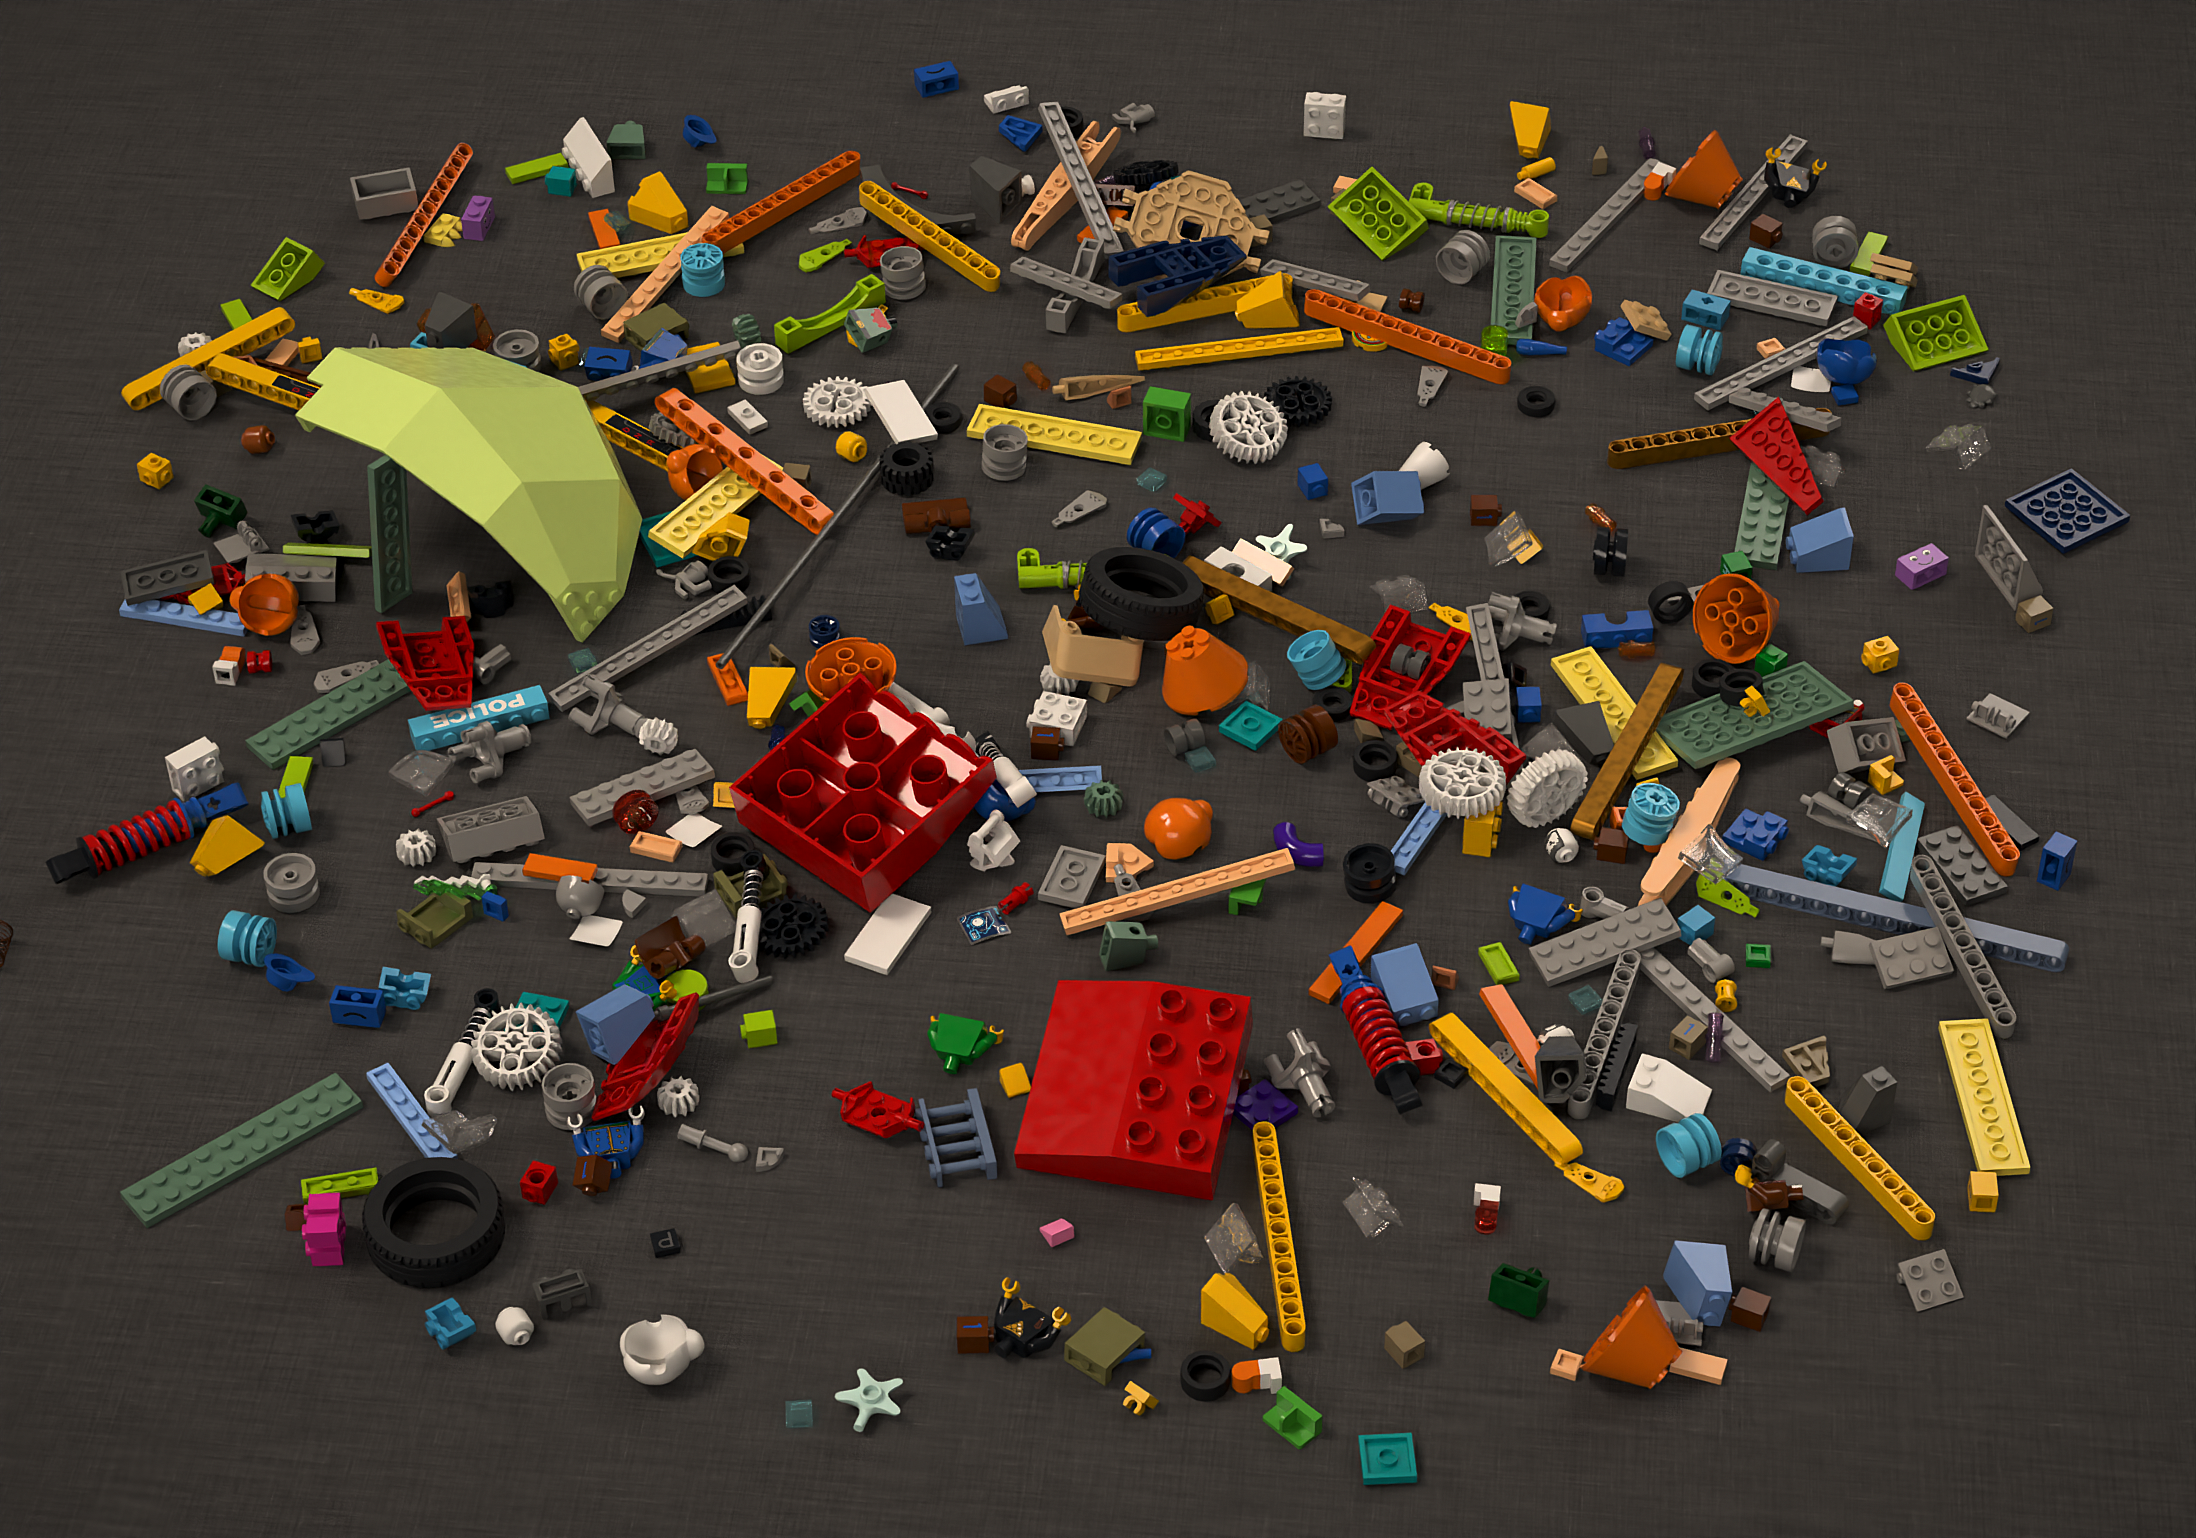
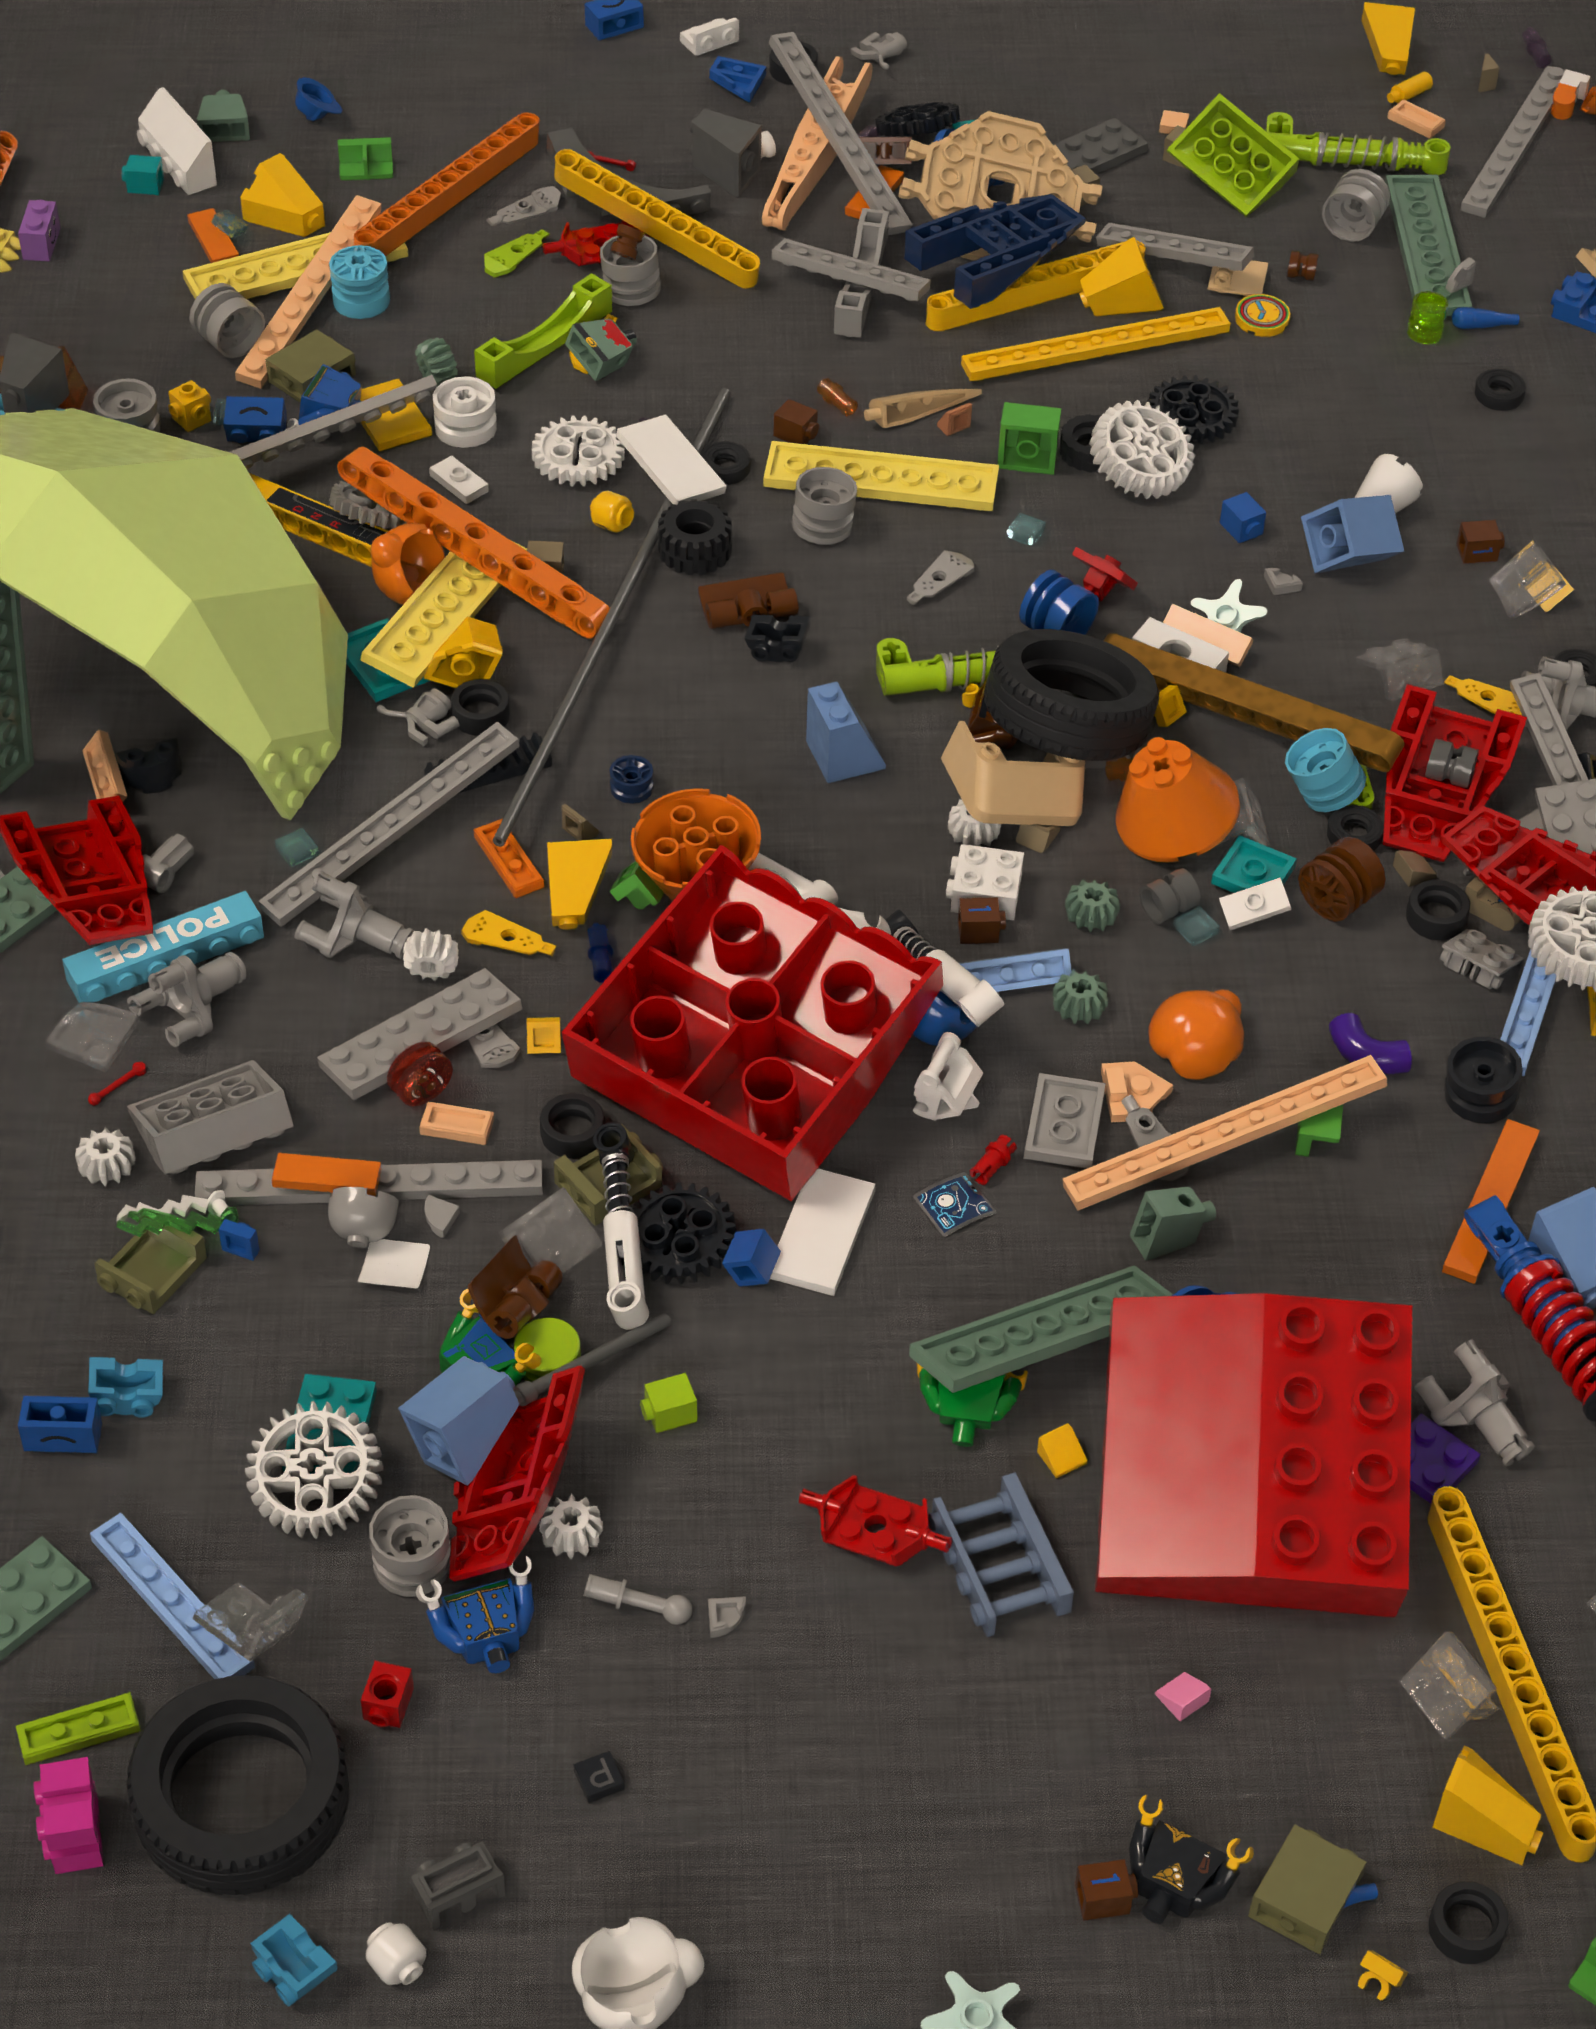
camera: 10 degrees left, 5 degrees up
(295, 1217) = (18, 1789): reddish brown slope -> none
(441, 1094) = (229, 1491): white piece -> none
(534, 168) = (103, 160): lime tile -> none
(592, 1174) = (469, 1675): reddish brown brick -> none
(693, 829) = (505, 1092): white sticker -> none
(706, 725) = (492, 929): none -> yellow piece
(834, 944) = (751, 1257): none -> blue brick
(900, 253) = (627, 242): none -> reddish brown wheel
(995, 1003) = (1029, 1331): none -> sand green plate
(1128, 739) = (1092, 905): none -> sand green gear
(1243, 747) = (1255, 904): none -> white plate
(1257, 1375) = (1548, 1912): leg -> none
(1324, 115) = (1128, 34): white brick -> none
(1408, 336) = (1314, 314): orange beam -> none
(1430, 376) = (1359, 365): light grey piece -> none
(1563, 302) = (1503, 255): orange piece -> none

